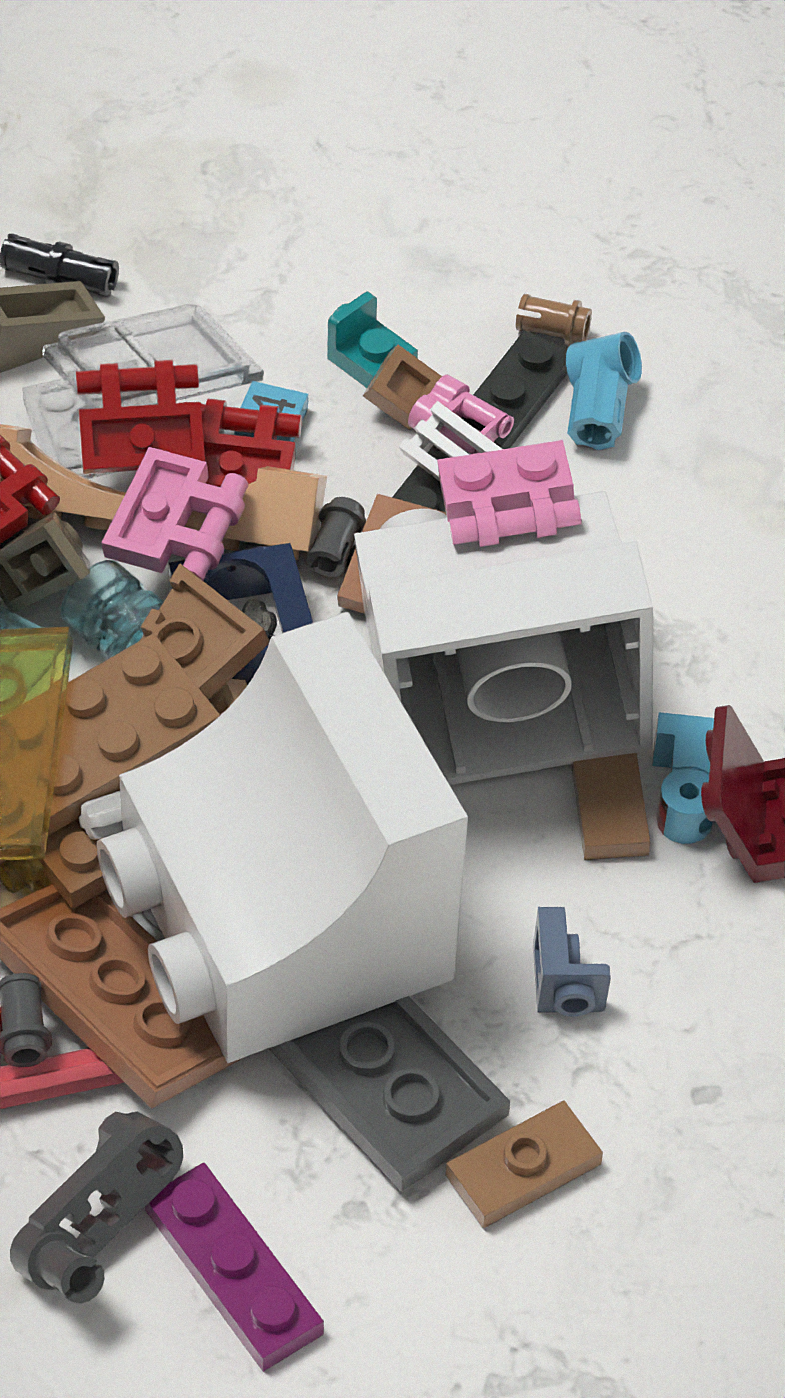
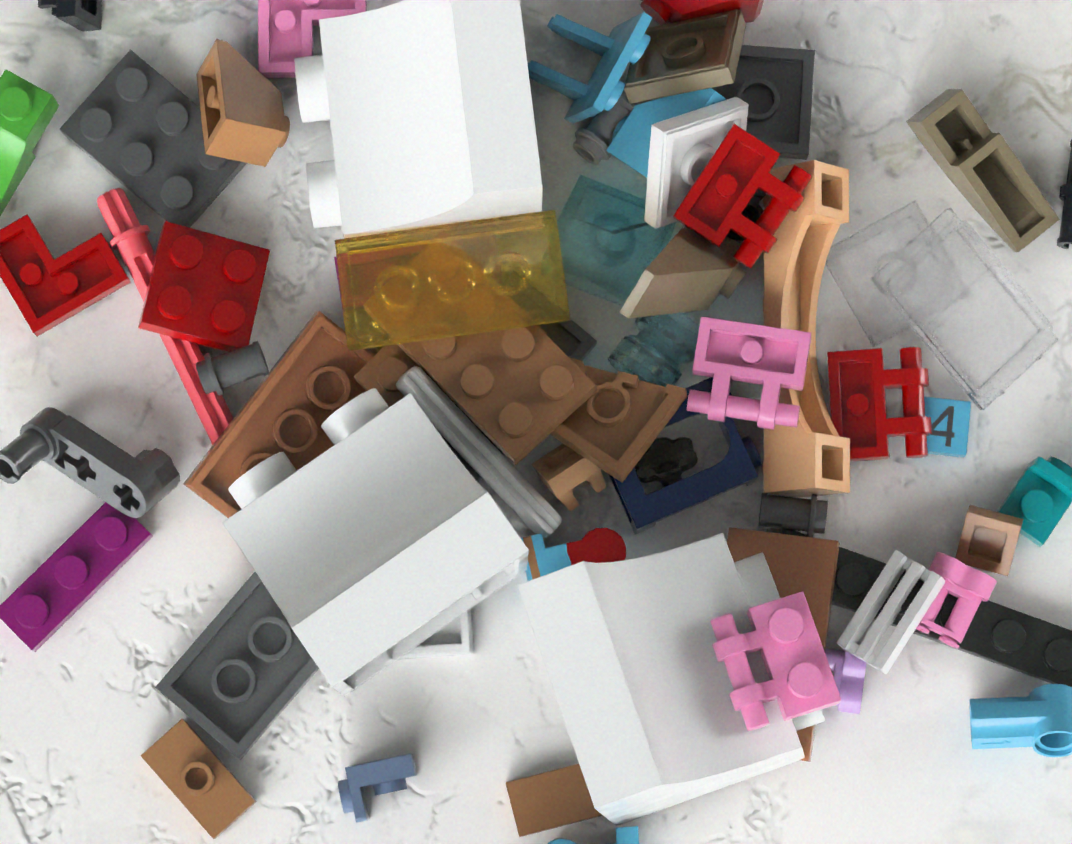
camera: 80 degrees right, 30 degrees up
(119, 436) = (848, 320): red plate -> none

